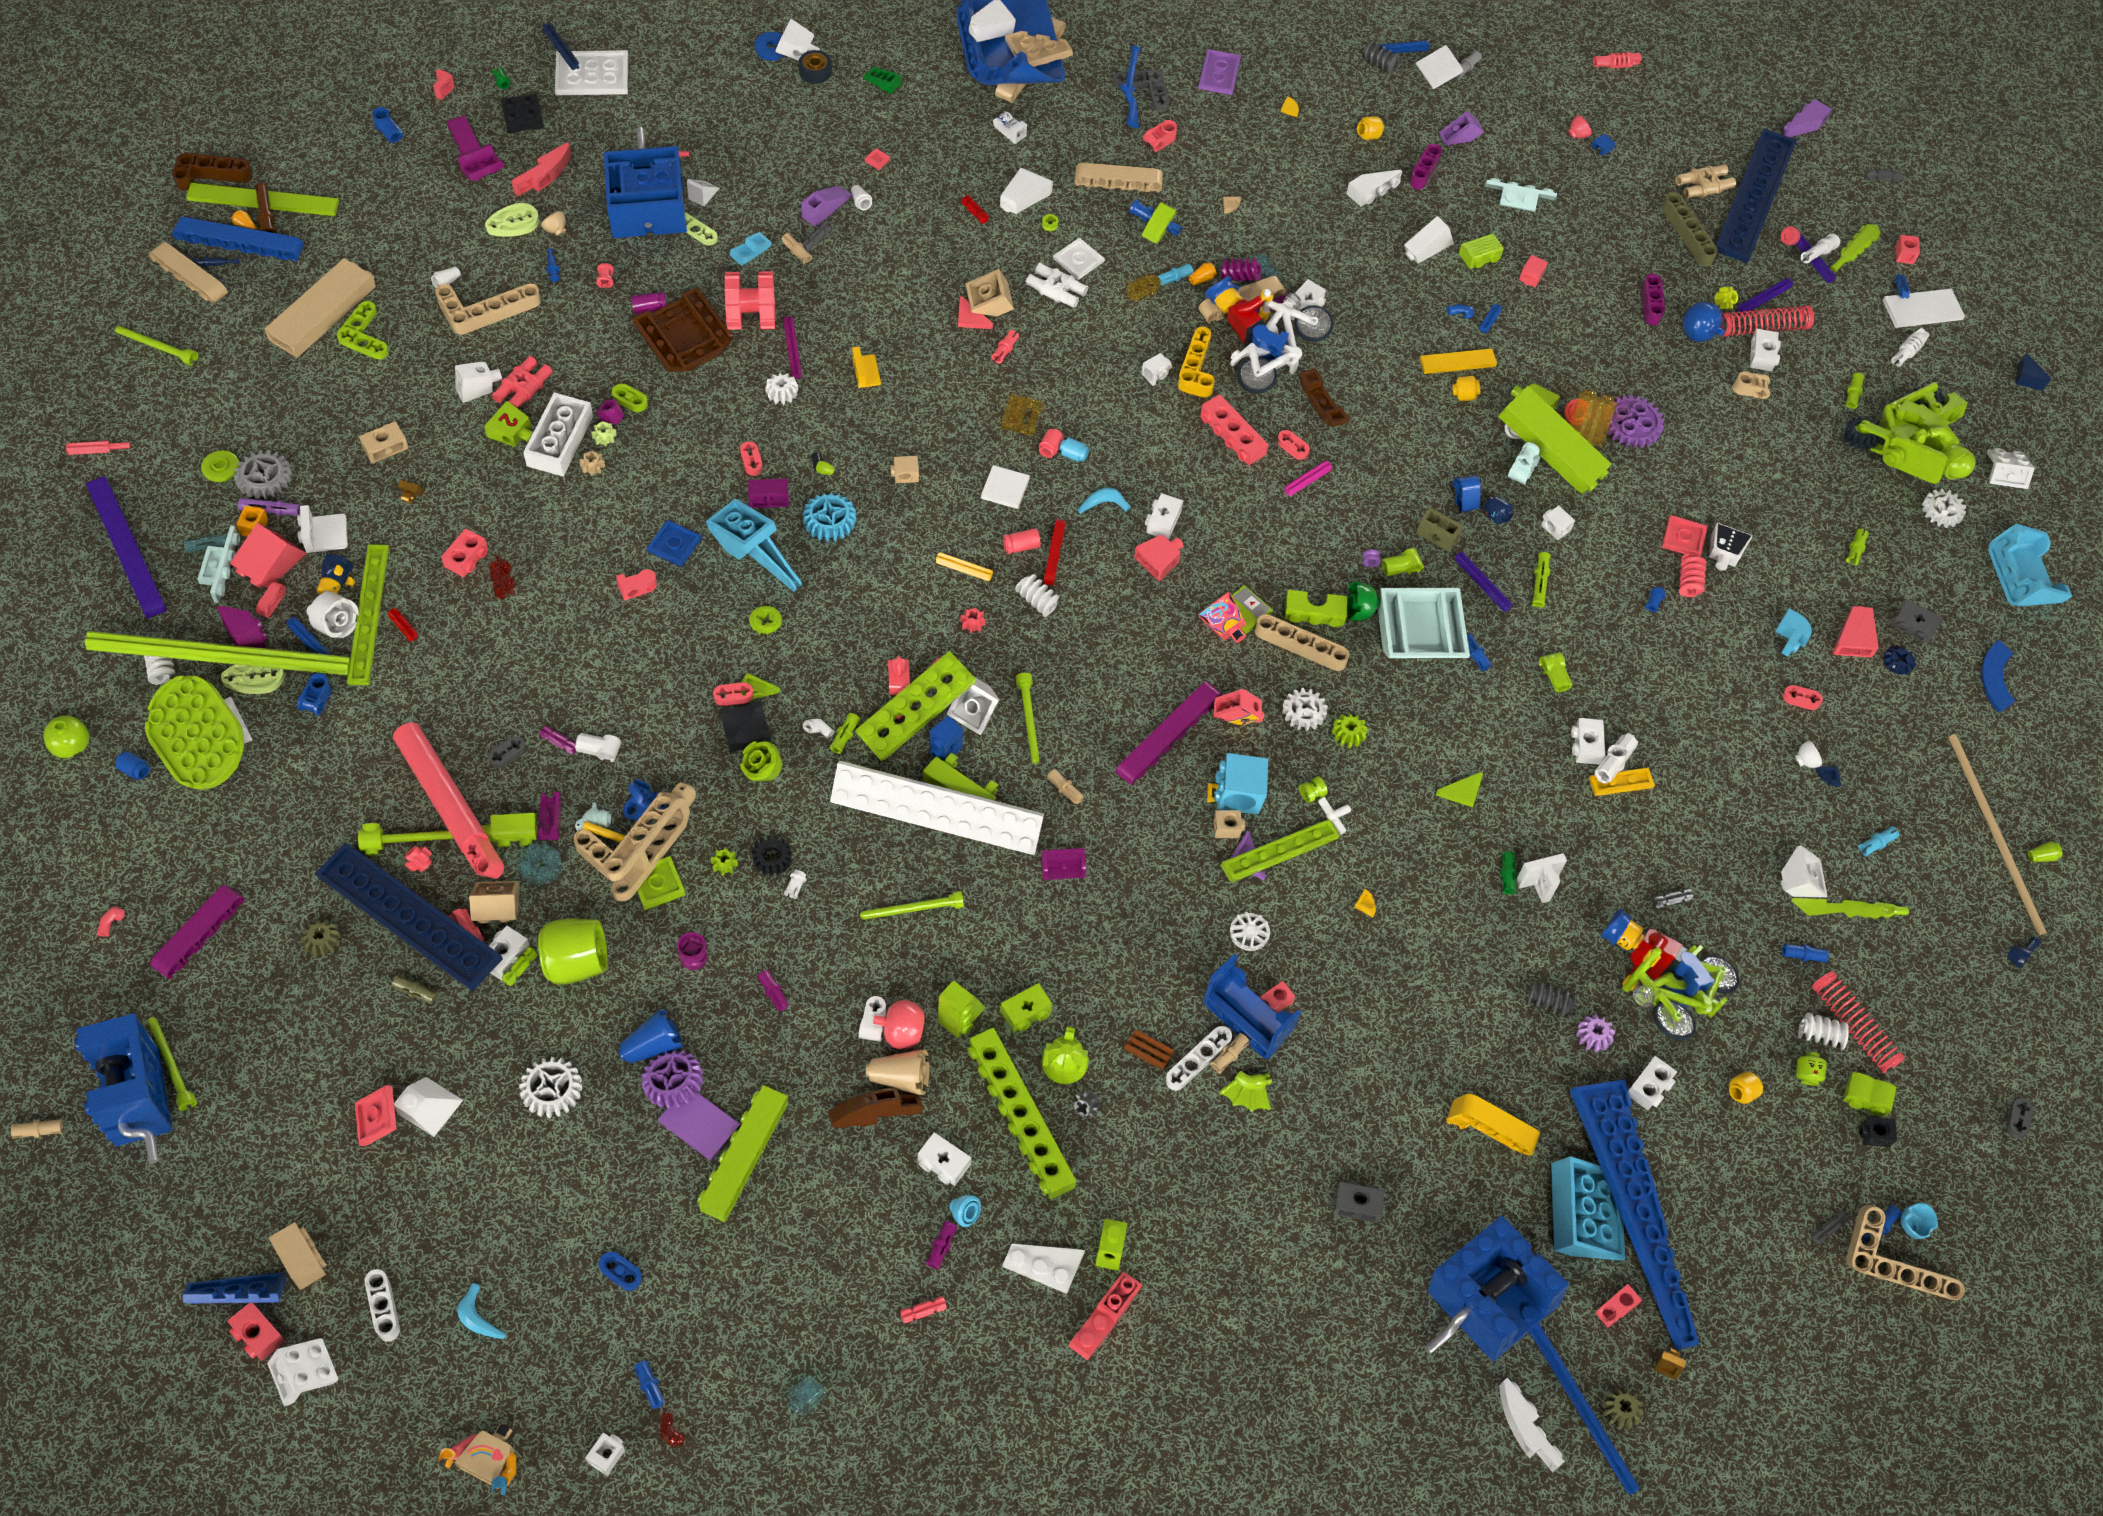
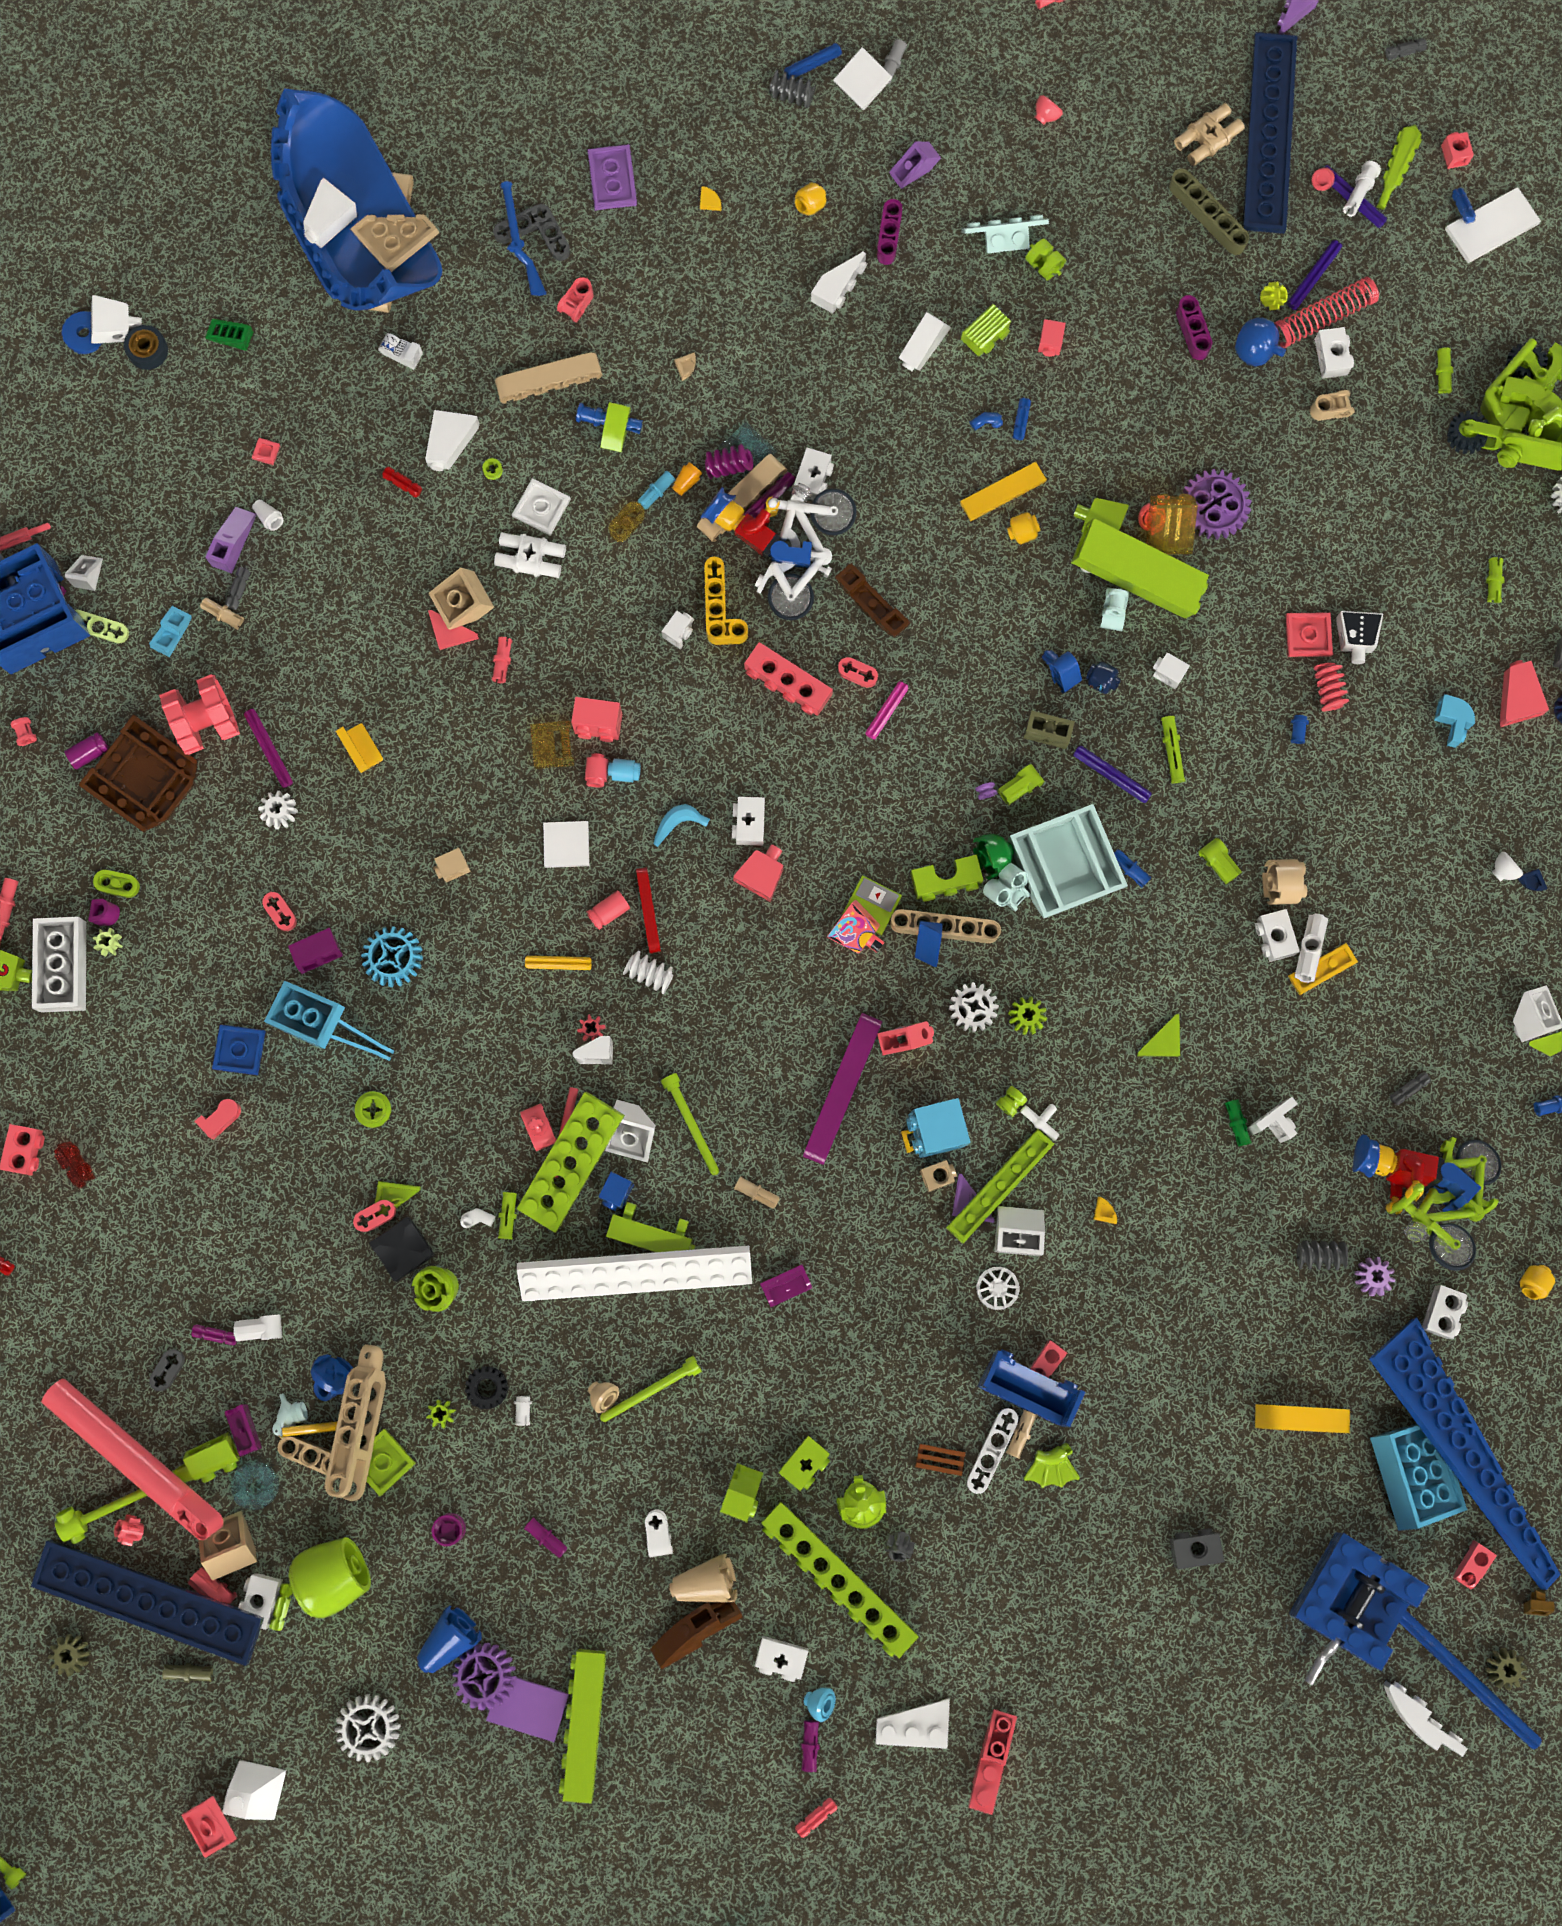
camera: 15 degrees left, 20 degrees up
(592, 463) = (115, 987): tan gear -> none
(621, 1271) = (512, 1894): blue plate -> none
(821, 466) = (358, 894): lime arm -> none
(870, 896) = (603, 1396): none -> tan brick
(902, 1024) = (689, 1534): coral piece -> none
(972, 624) = (595, 1052): none -> white tile
(1066, 404) = (596, 719): none -> coral brick
(1111, 1243) = (973, 1683): lime torso -> none
(1283, 646) = (929, 942): none -> blue slope
(1284, 892) = (1020, 1231): none -> white slope
(1367, 630) = (1009, 887): none -> light aqua piece
(1545, 219) = (1043, 258): none -> lime wheel
(1604, 143) = (1080, 121): blue piece -> none
(1607, 700) = (1284, 881): none -> tan brick
(1802, 697) = (1483, 800): coral beam -> none
(1910, 346) = (1491, 286): white hinge -> none

